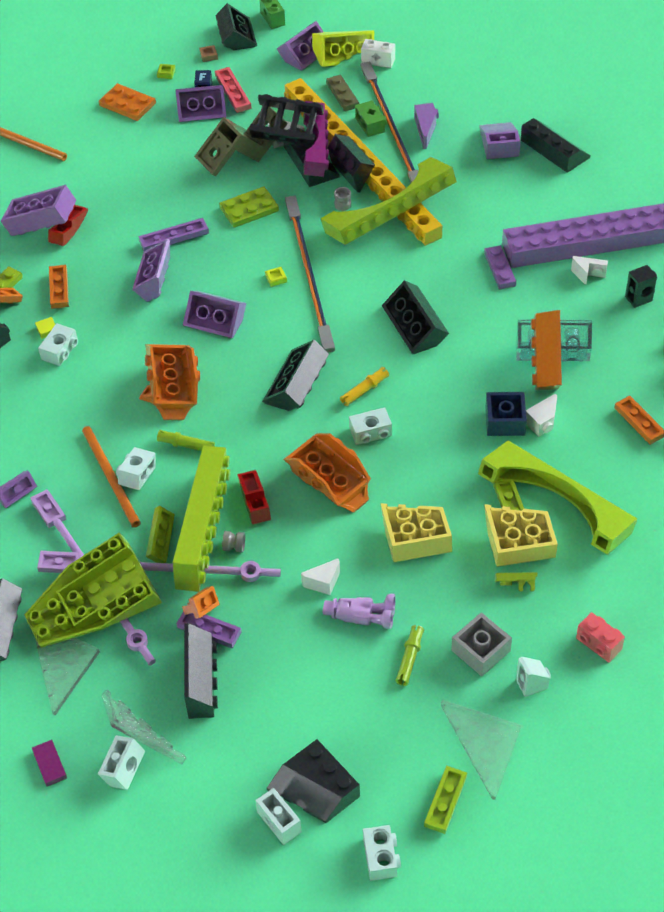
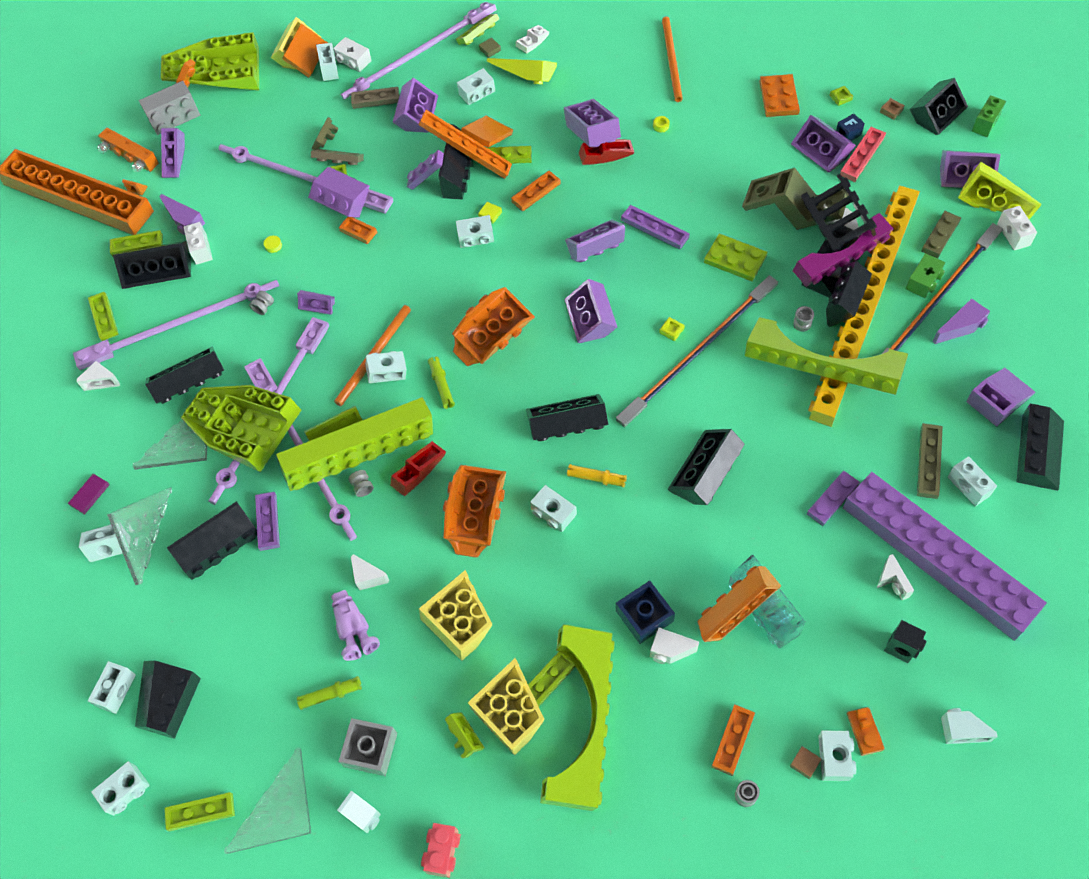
camera: 60 degrees right, 10 degrees up
(76, 180) = (661, 124): none -> neon yellow tile
(202, 602) = (280, 501): orange plate -> none
(516, 201) = (929, 461): none -> olive plate
(550, 189) = (972, 481): none -> light aqua brick

